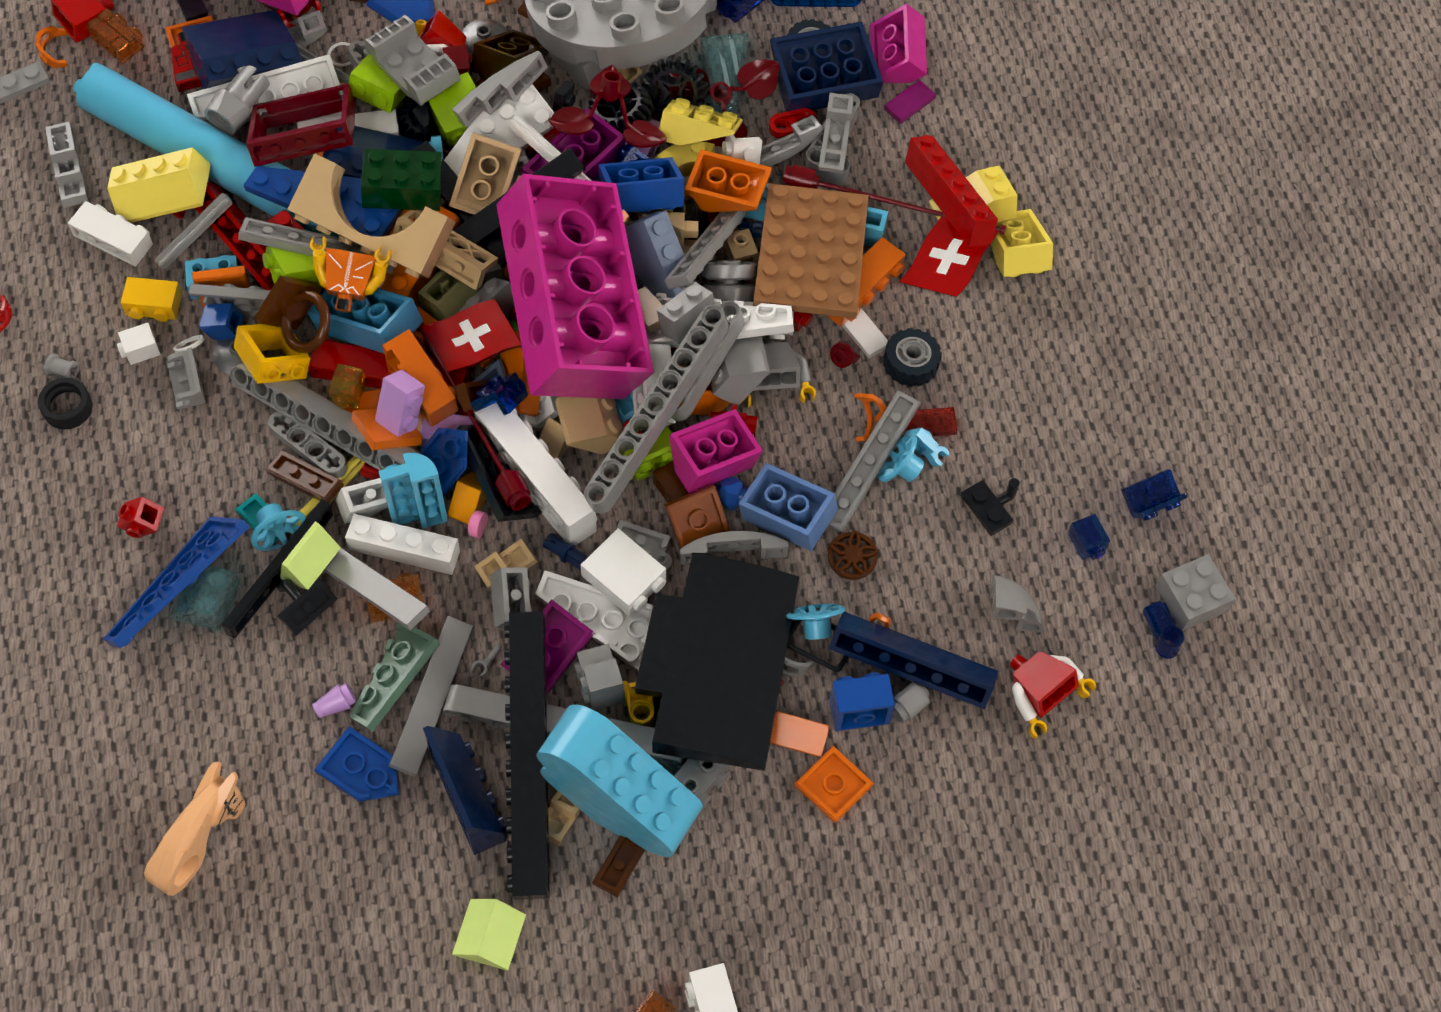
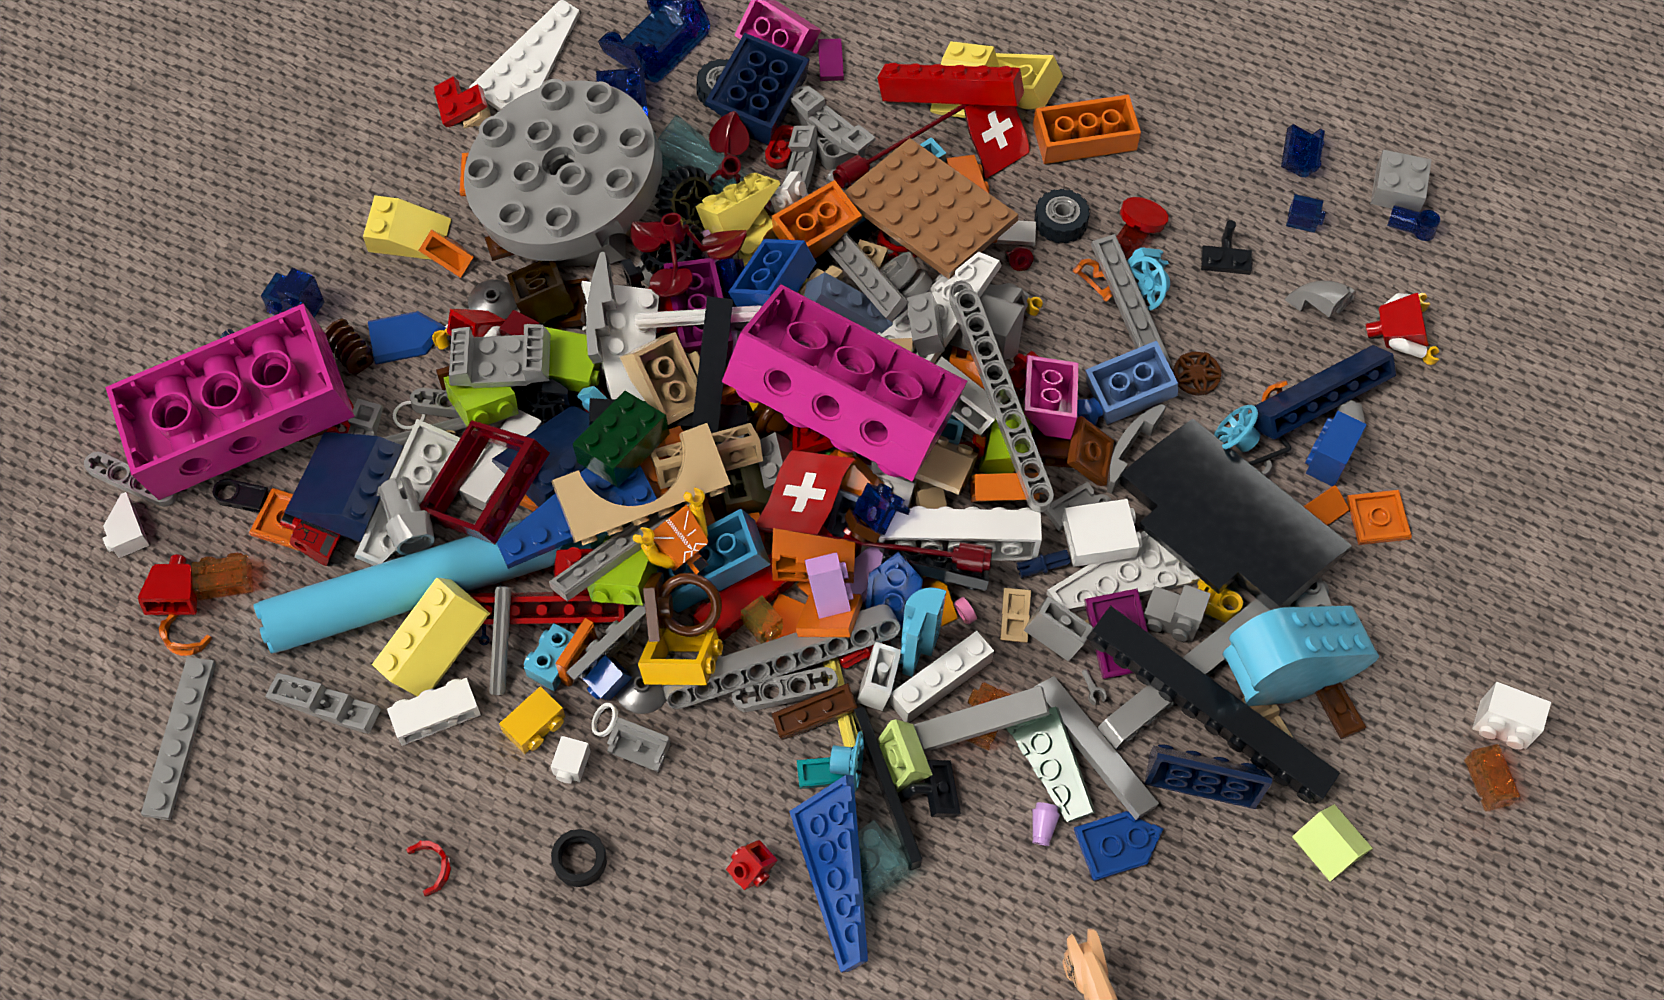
camera: 50 degrees left, 0 degrees up
(56, 366) = (539, 839): light grey bush -> none
(588, 459) = (998, 487): none -> orange brick
(969, 415) = (1144, 214): none -> red tile
(1012, 318) = (1086, 129): none -> orange brick

